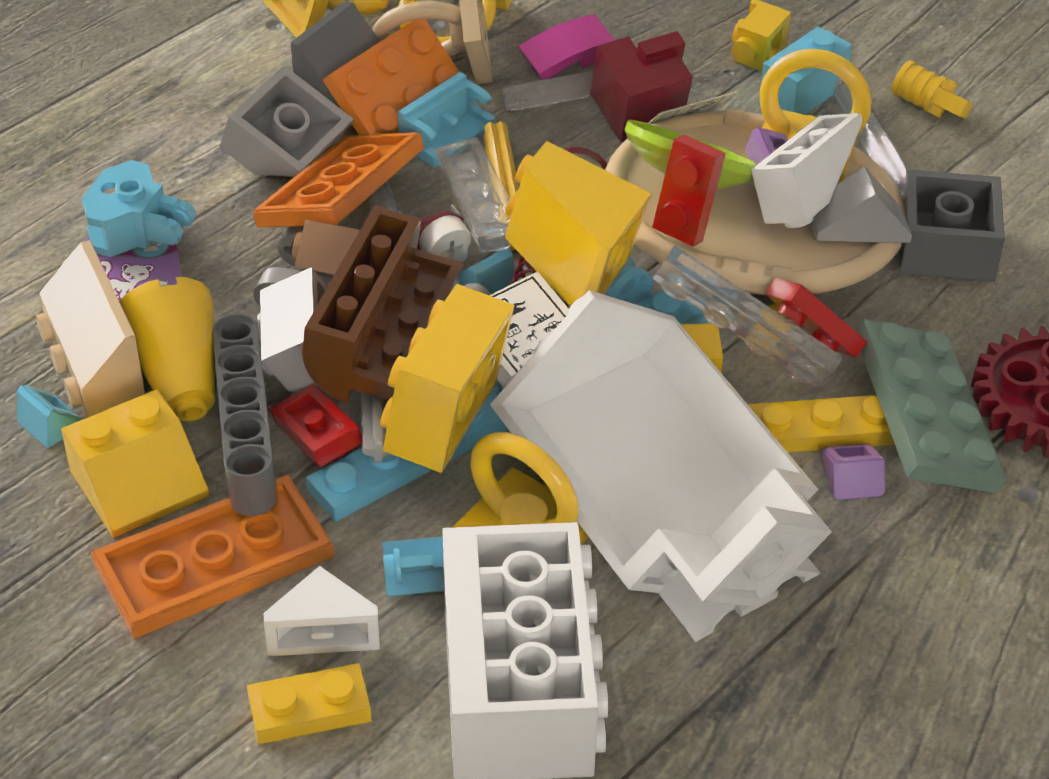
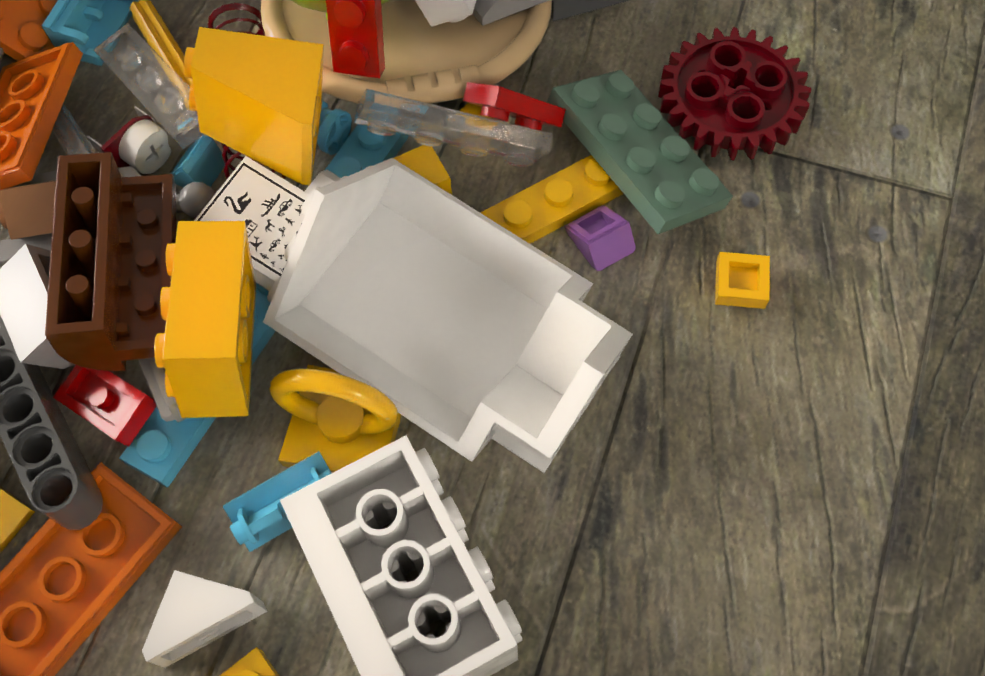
camera: 20 degrees left, 20 degrees up
(977, 551) = (742, 280): none -> yellow plate

